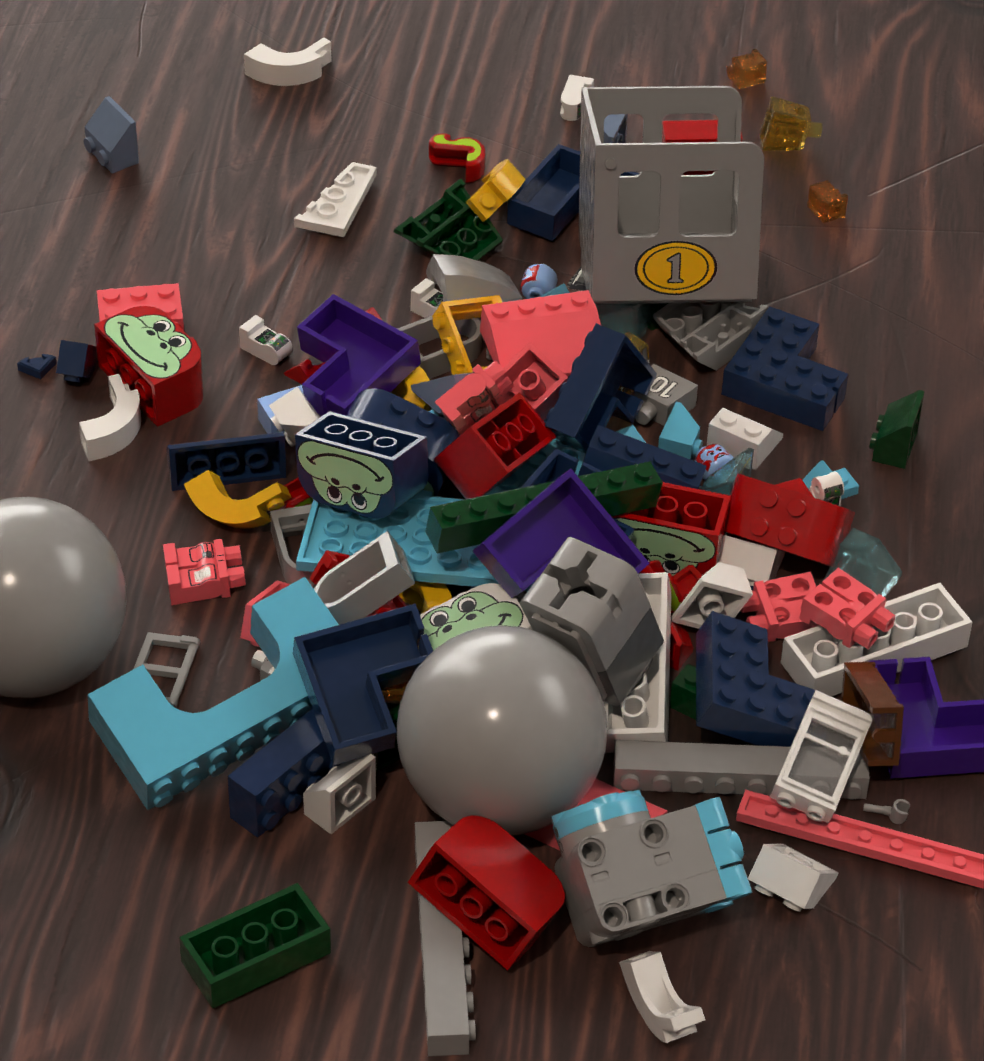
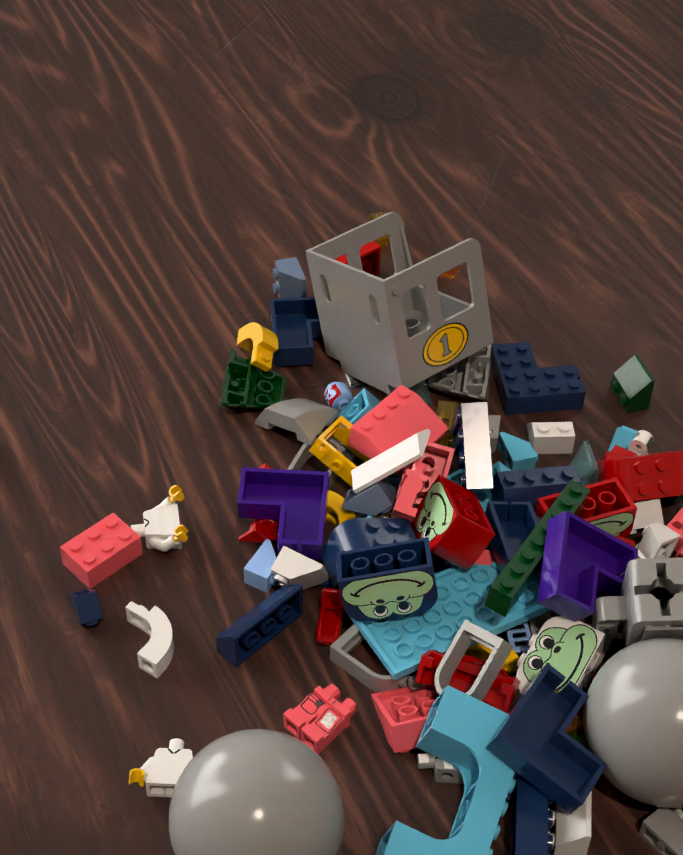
camera: 35 degrees left, 0 degrees up
(38, 366) = (55, 625): dark blue tile -> none
(154, 358) = (147, 576): brick -> none
(183, 642) = (373, 840): light grey window -> none
(213, 500) = (302, 661): yellow arch -> none
(219, 321) = (162, 524): none -> torso
(263, 341) = (203, 525): white leg -> none
(287, 68) = (35, 327): white arch -> none
(338, 203) = (157, 402): white wing -> none
(425, 298) = (283, 442): white leg -> none
(459, 152) = (205, 332): red animal -> none
(486, 351) = (390, 461): none -> white slope
(571, 97) = (238, 266): white leg -> none
(714, 457) = (553, 458): light blue head -> none
(747, 69) = (323, 204): clear orange brick -> none

